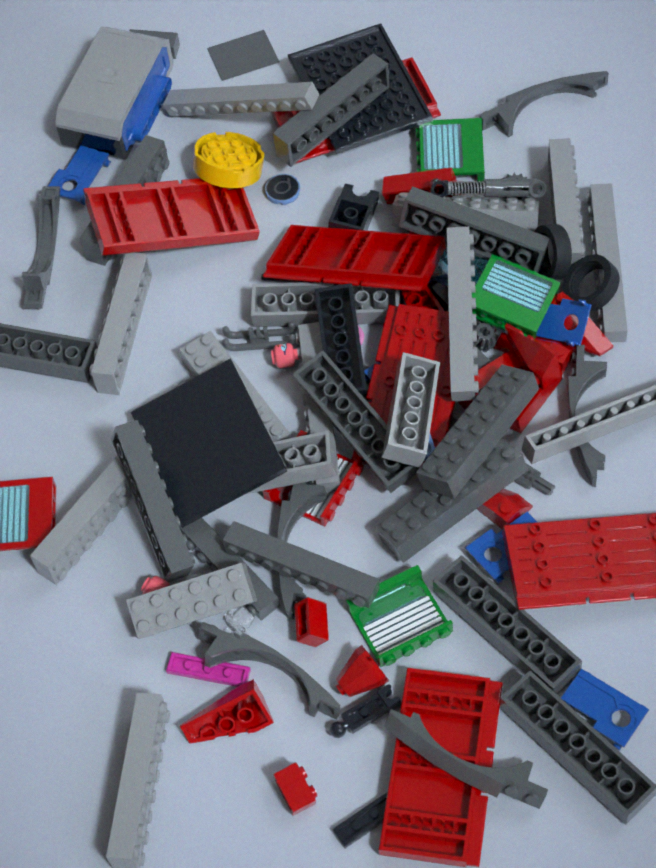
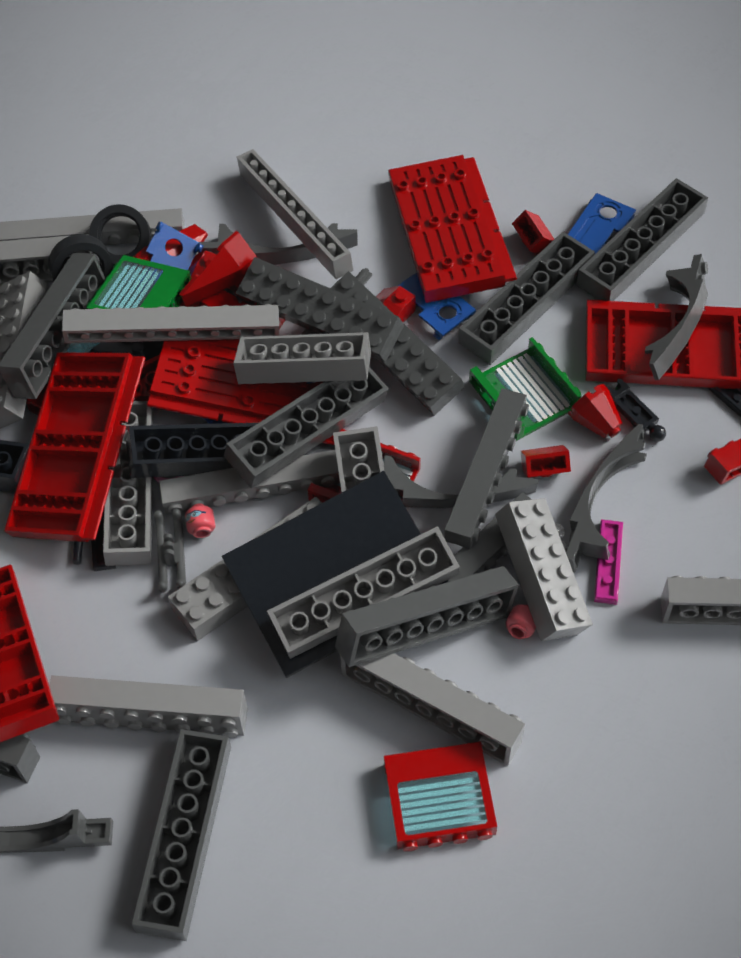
camera: 100 degrees left, 0 degrees up
(177, 455) = (397, 572): none -> light grey brick
(232, 714) = (652, 519): red wedge -> none
(591, 640) = (532, 231): none -> red brick

